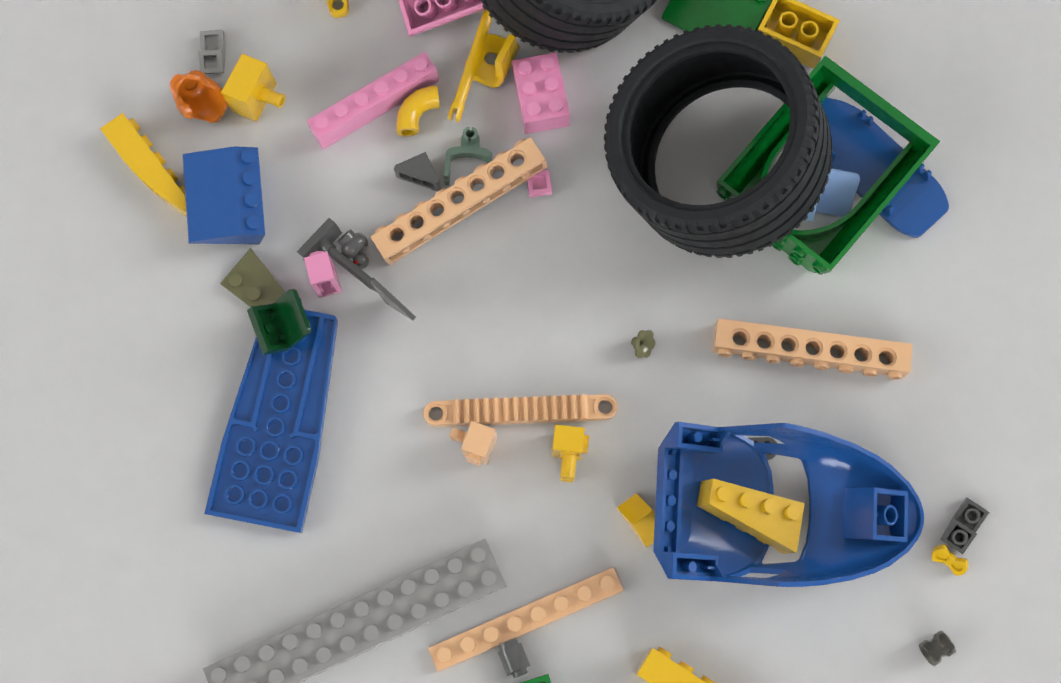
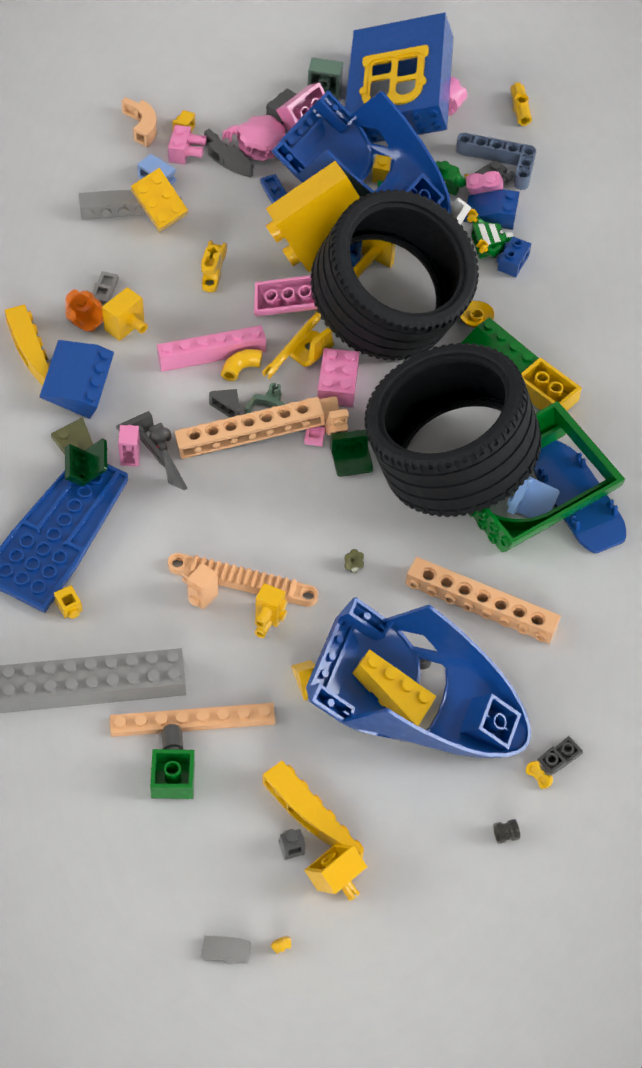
camera: 10 degrees right, 20 degrees down
(318, 510) = (68, 602): none -> yellow brick
(559, 161) = (334, 418): none -> light nougat arch
(591, 196) = (351, 453): none -> dark green bracket

